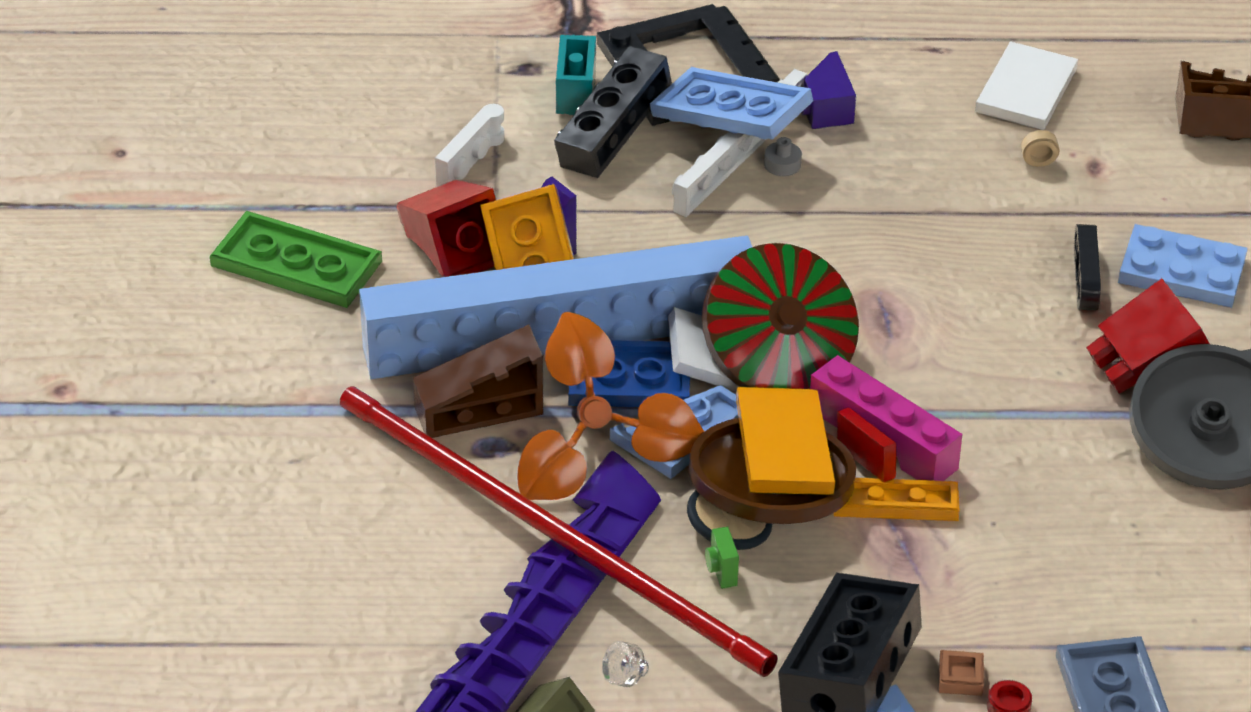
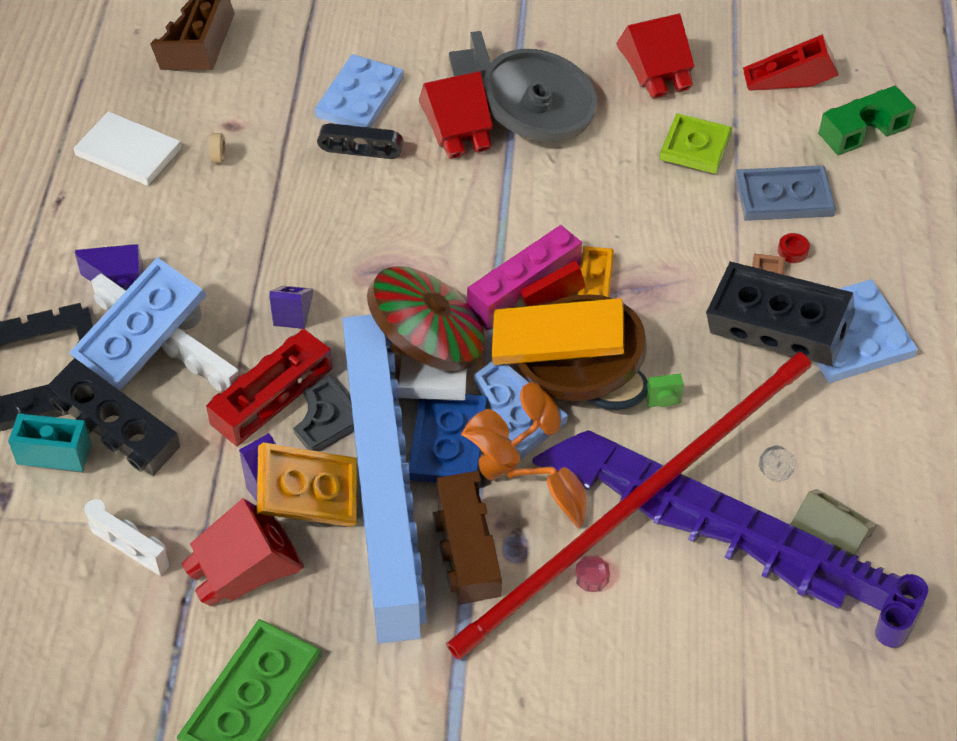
camera: 85 degrees left, 10 degrees up
(455, 505) = (592, 573): none -> clear pink tile
(670, 215) = (269, 386): none -> red brick
(809, 228) = (290, 306): none -> dark purple slope
(1181, 592) = (696, 143): none -> lime plate

